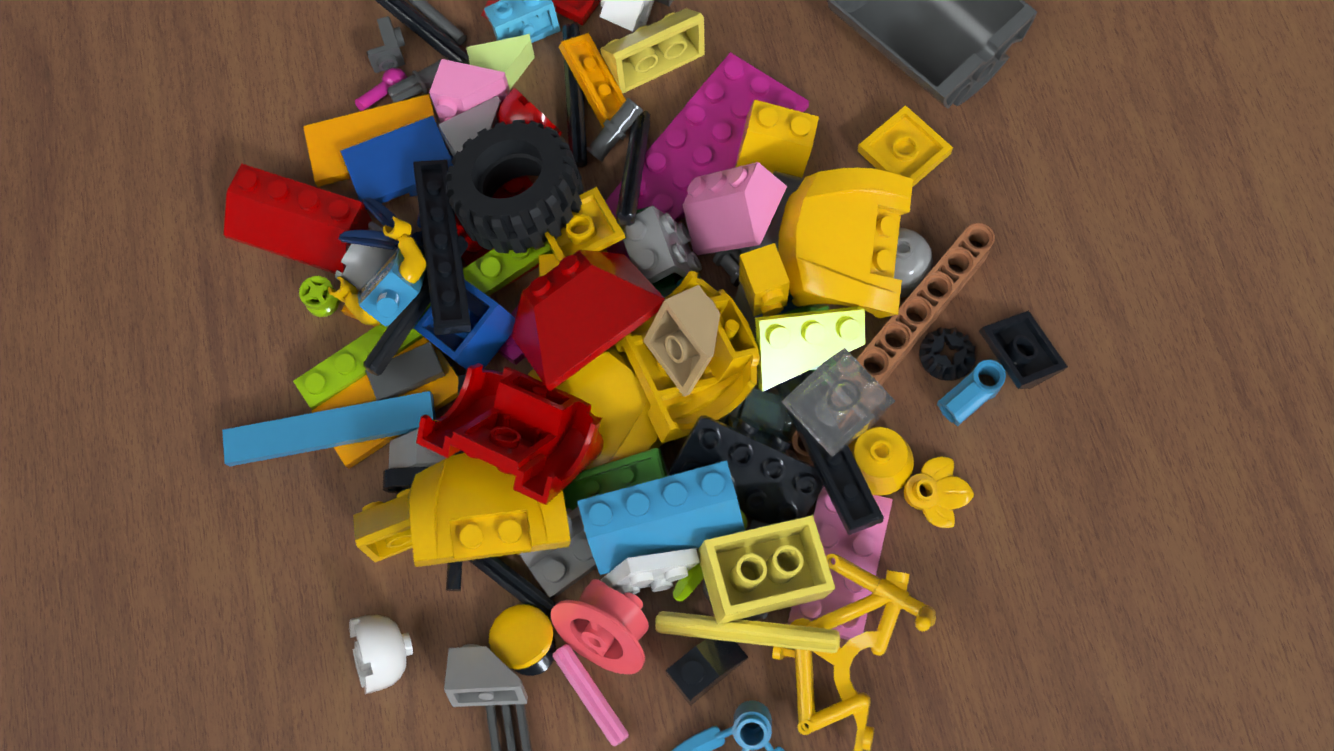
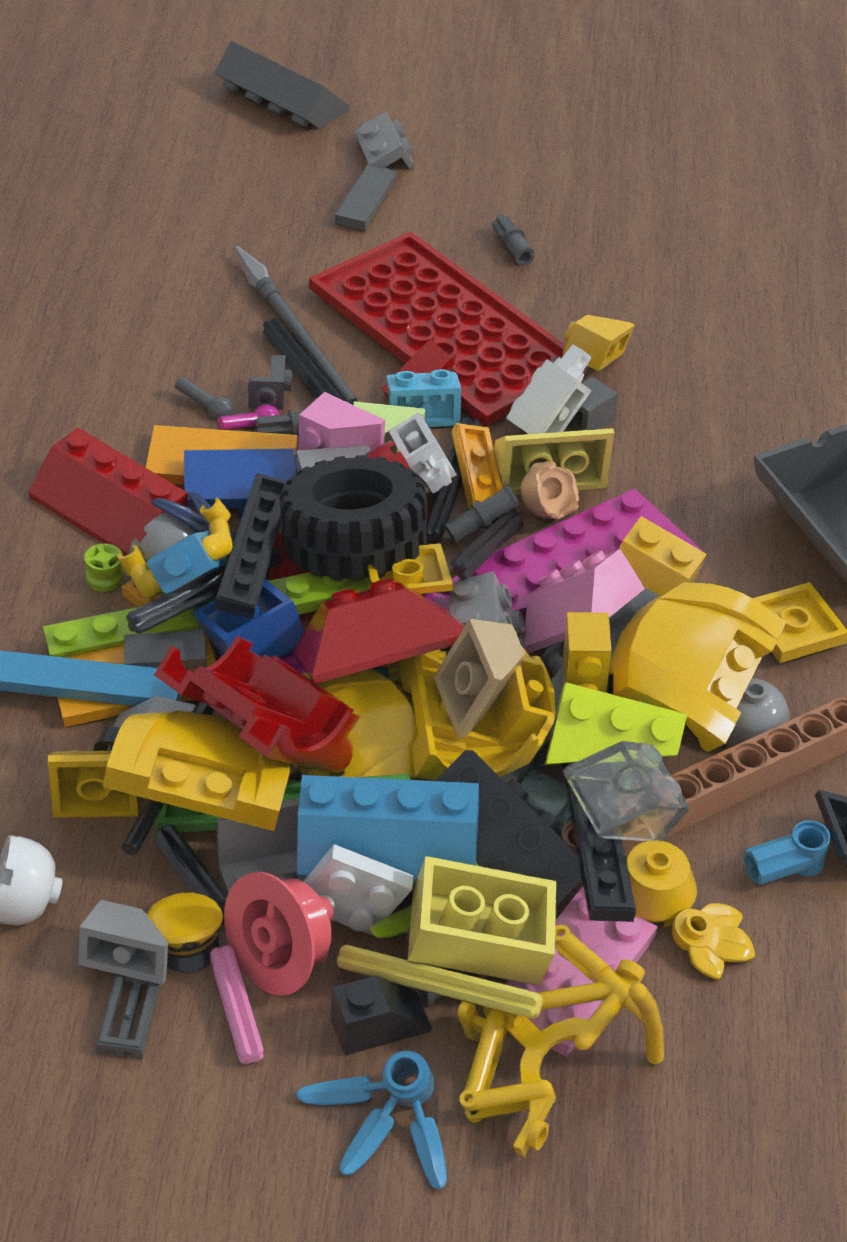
camera: 10 degrees right, 25 degrees down
(351, 84) = (215, 407): none -> dark grey bar
(545, 86) = (423, 452): none -> white hinge
(663, 84) = (549, 491): none -> light nougat hair
(939, 365) = (758, 820): black gear -> none

